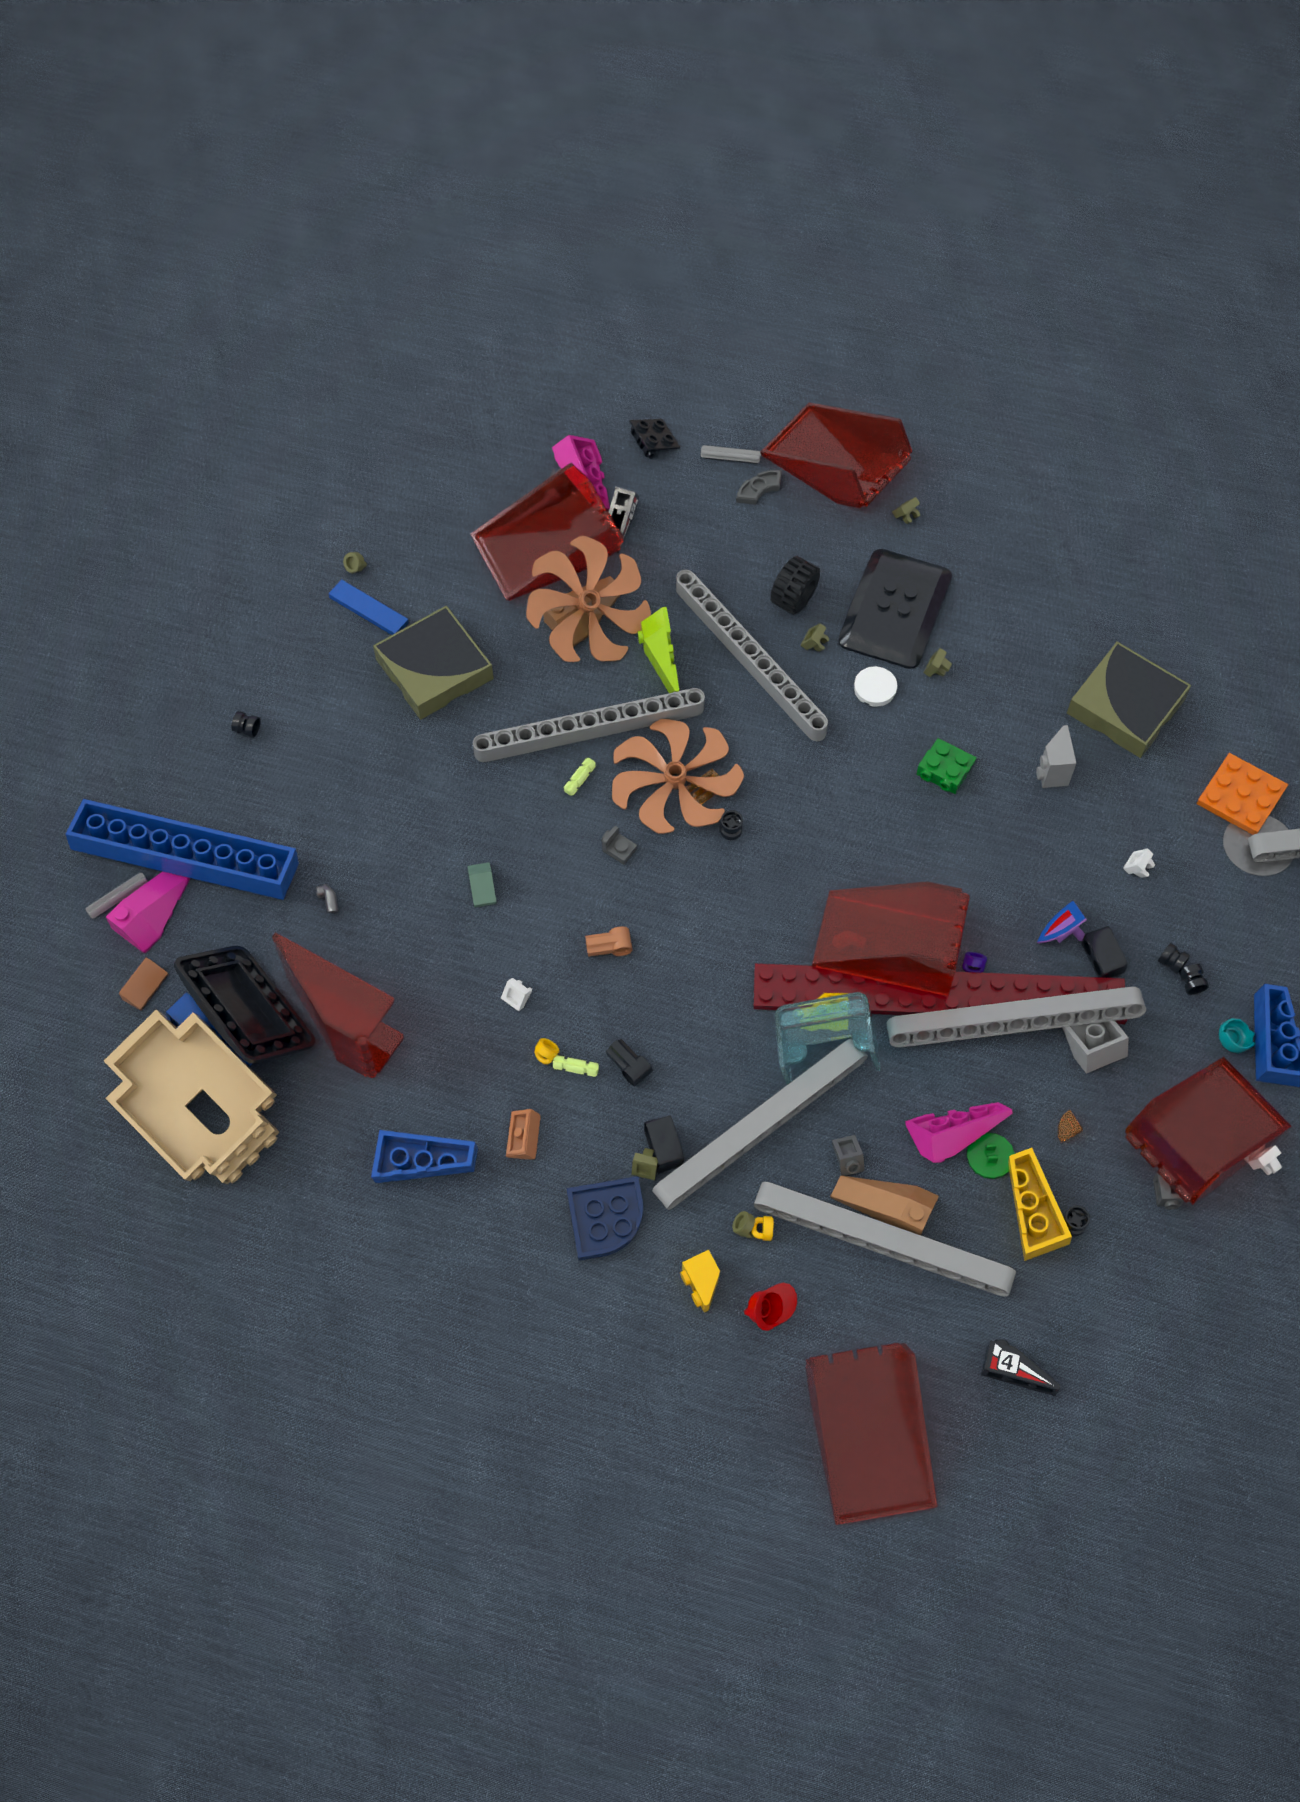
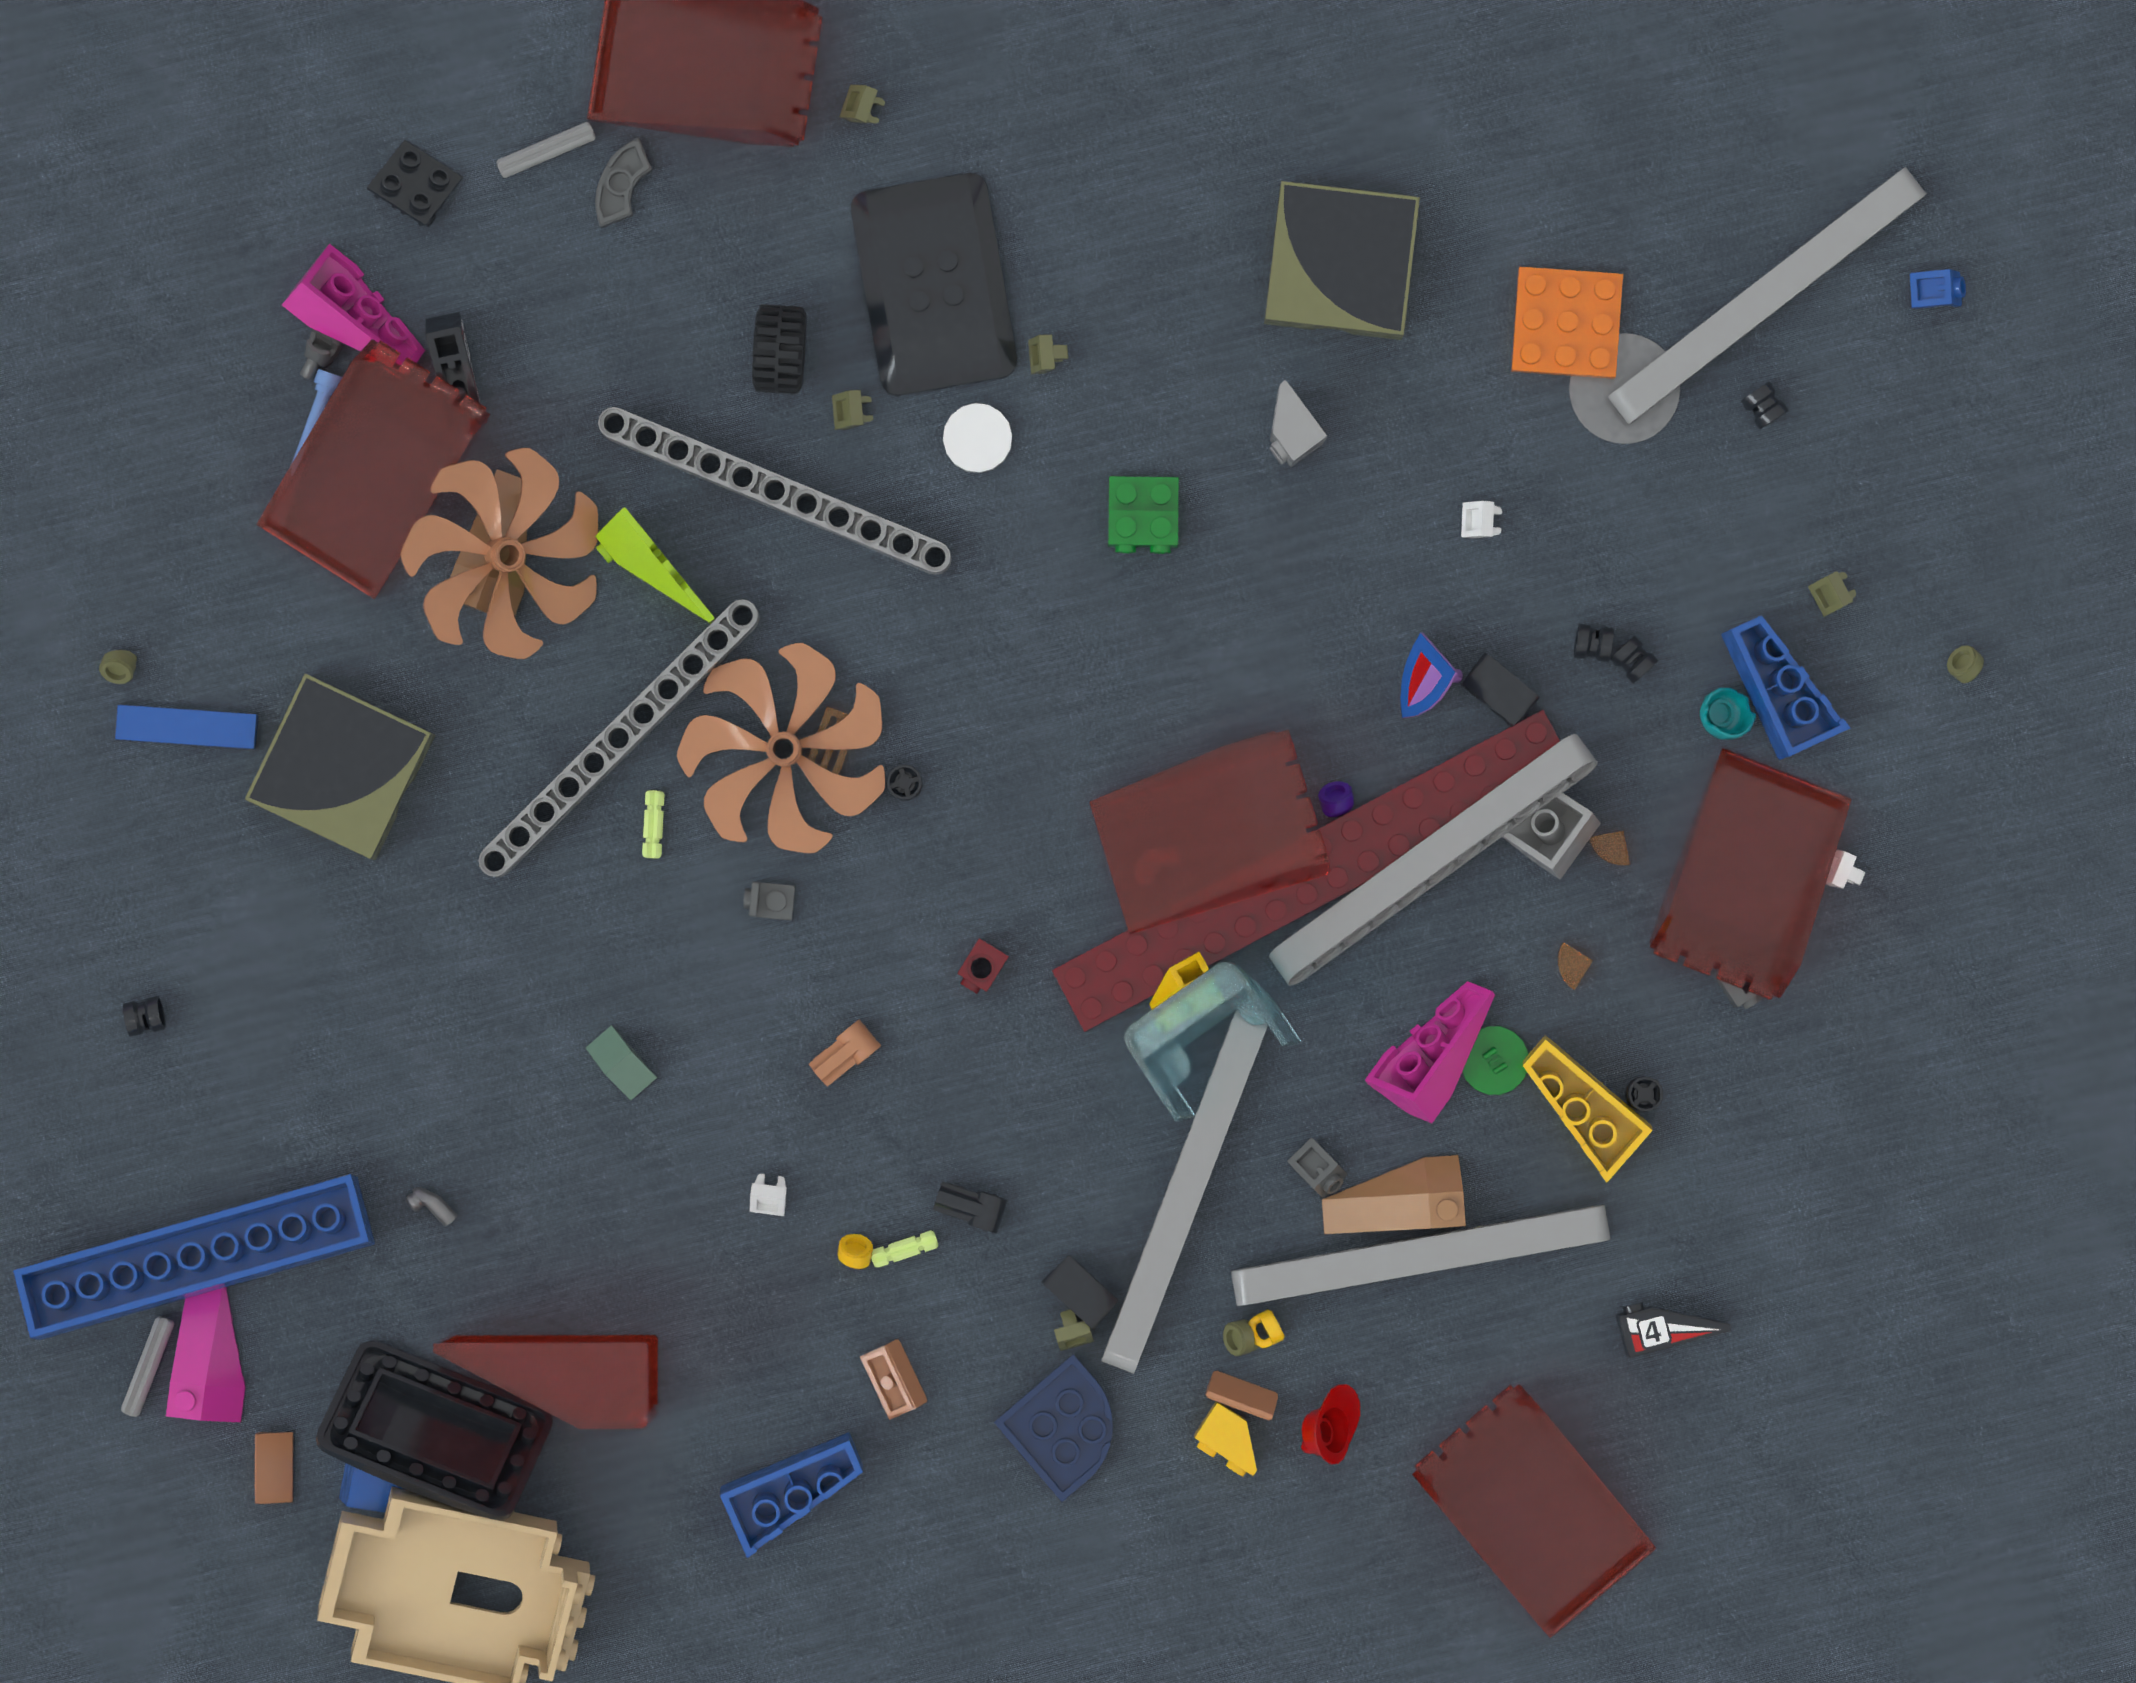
camera: 30 degrees left, 25 degrees up
(718, 930) = (986, 951): none -> dark red brick
(725, 1261) = (1242, 1395): none -> nougat slope
(1126, 1075) = (1611, 848): none -> clear orange tile

